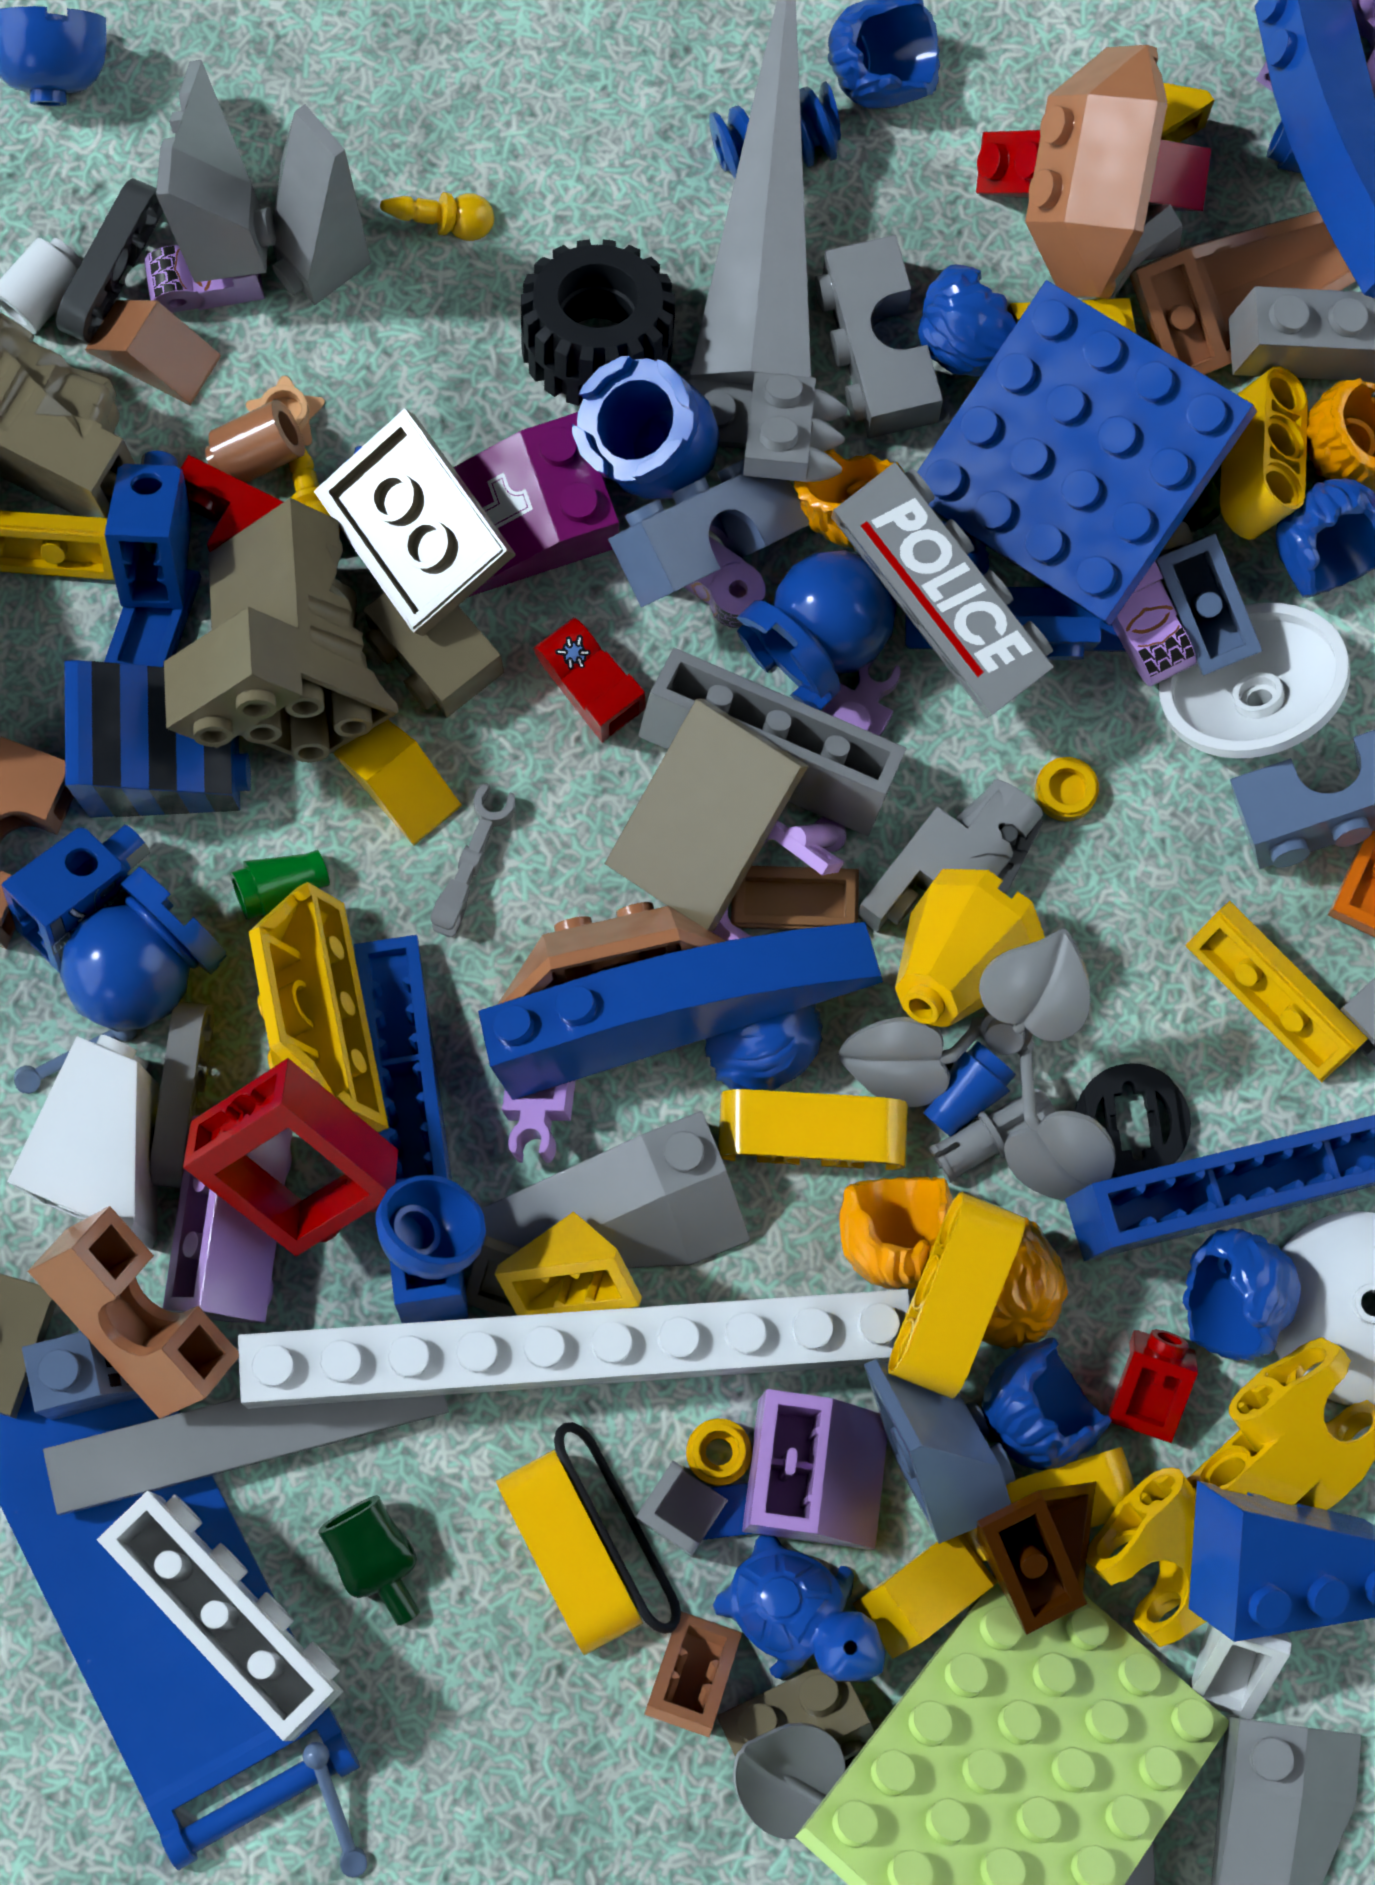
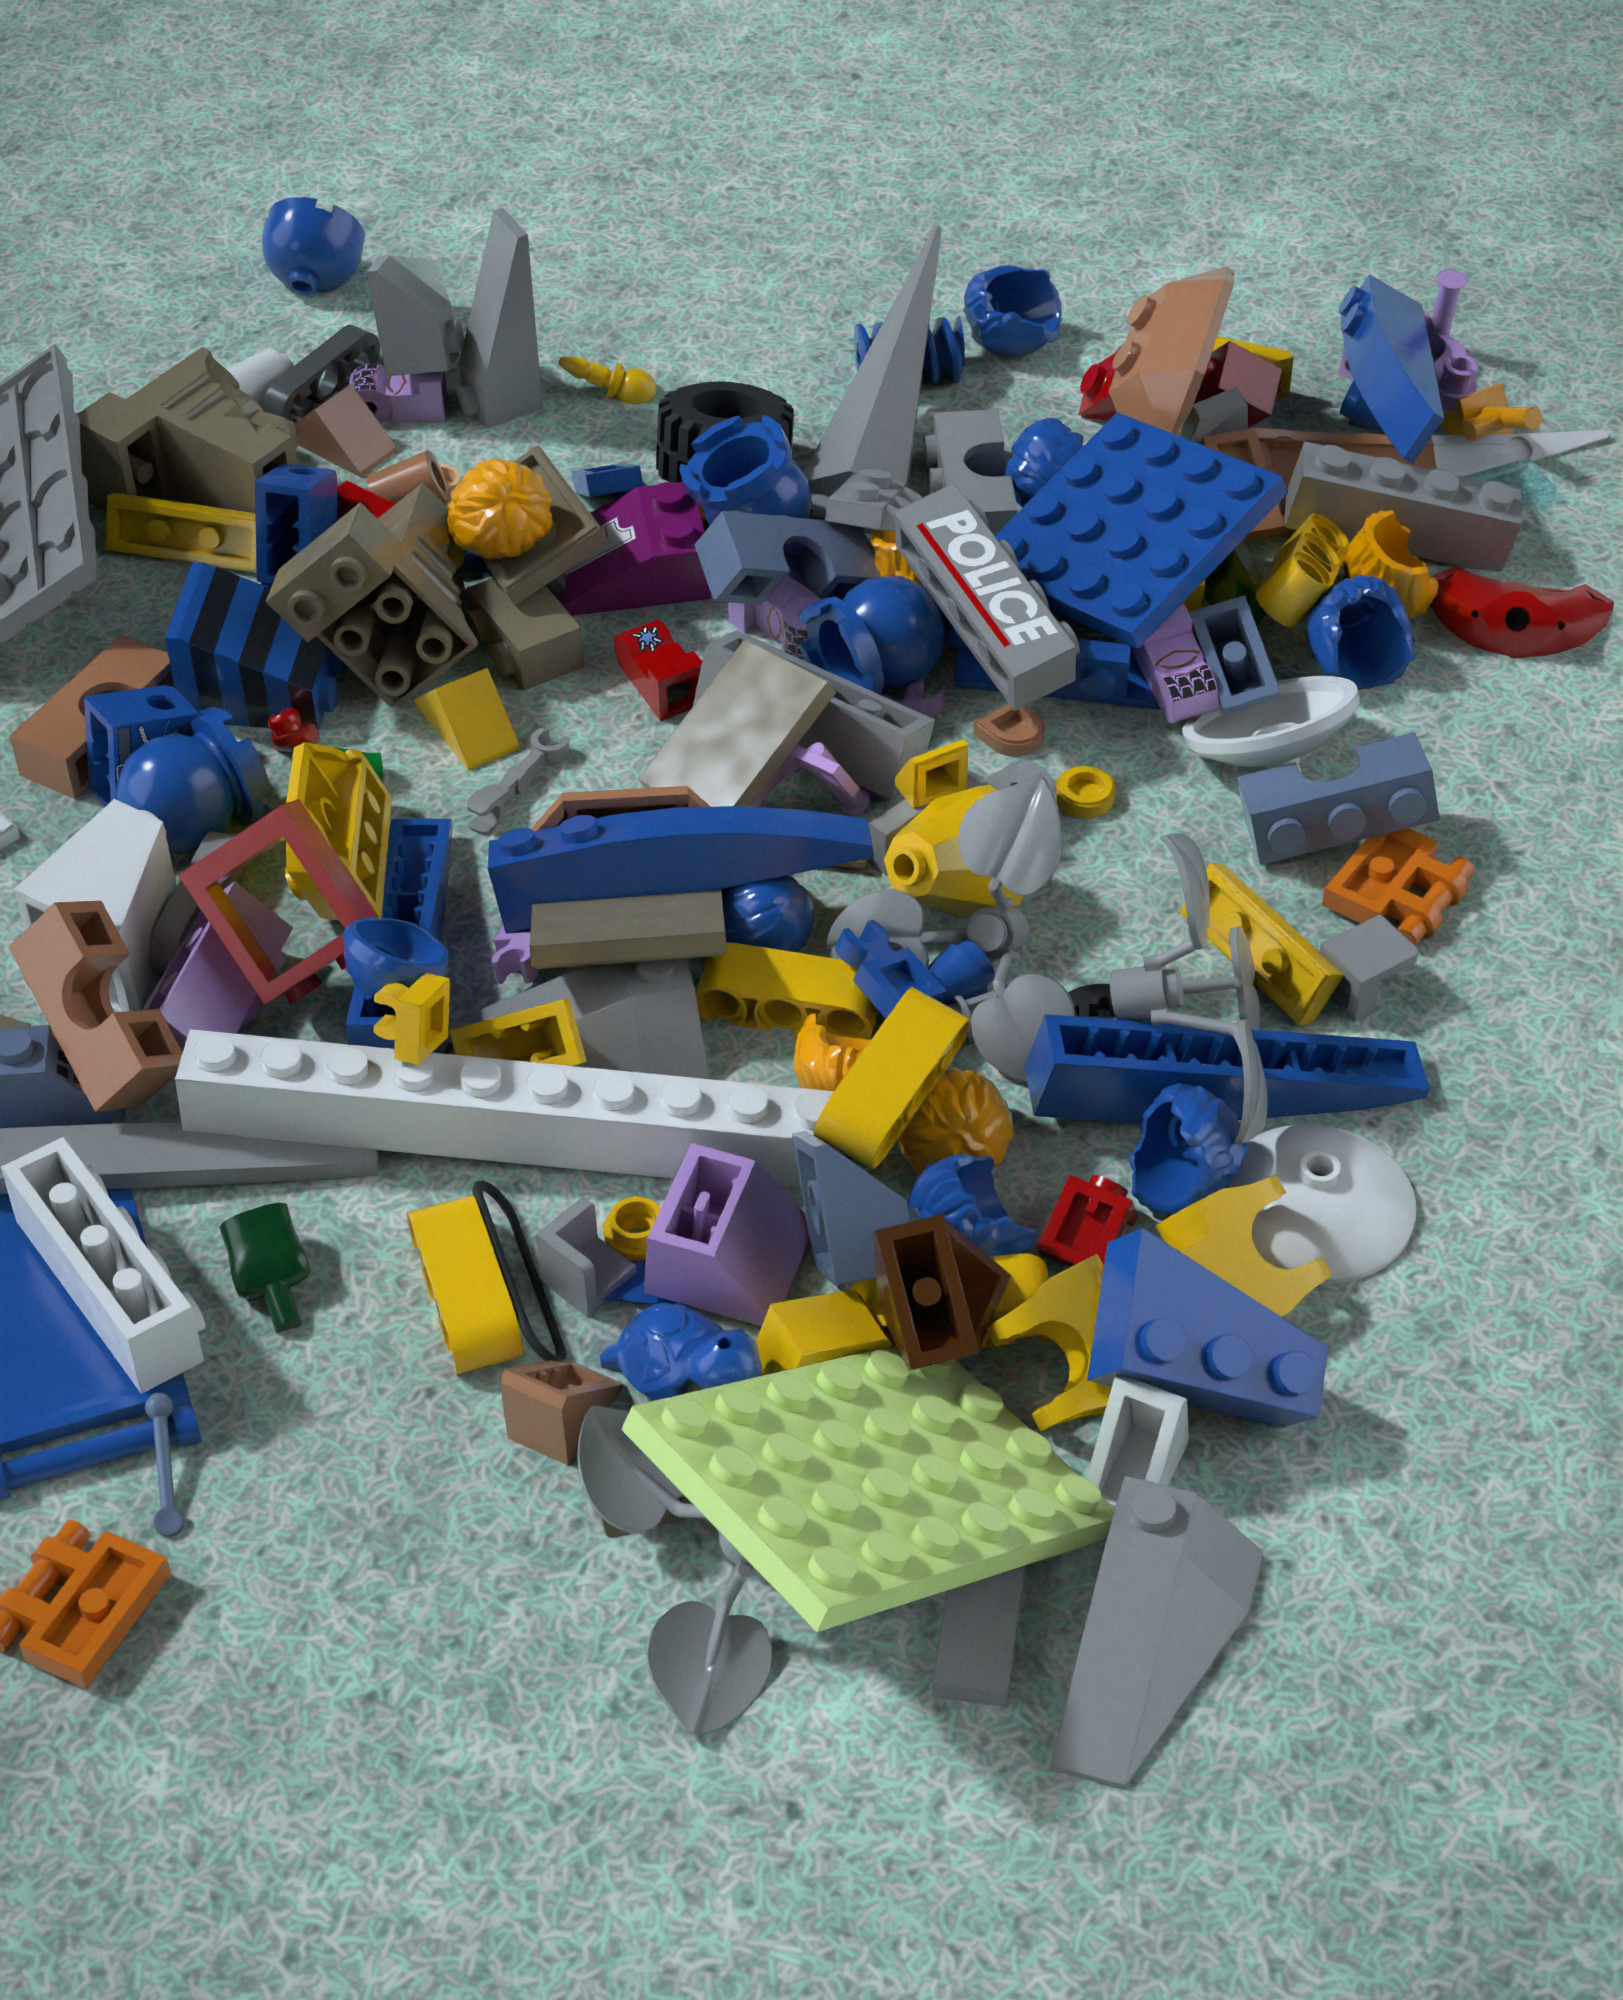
camera: 10 degrees right, 30 degrees down
(221, 849) = (290, 732): none -> red arm
(388, 537) = (499, 509): none -> light orange hair
(466, 1305) = (419, 1017): none -> yellow tile
(477, 401) = (607, 479): none -> blue tile
(647, 1113) = (627, 929): none -> dark tan tile
(919, 839) = (934, 774): none -> yellow slope
(924, 1121) = (882, 972): none -> blue plate
(967, 719) = (1011, 731): none -> nougat tile
(1198, 1128) = (1155, 990): none -> light grey plant

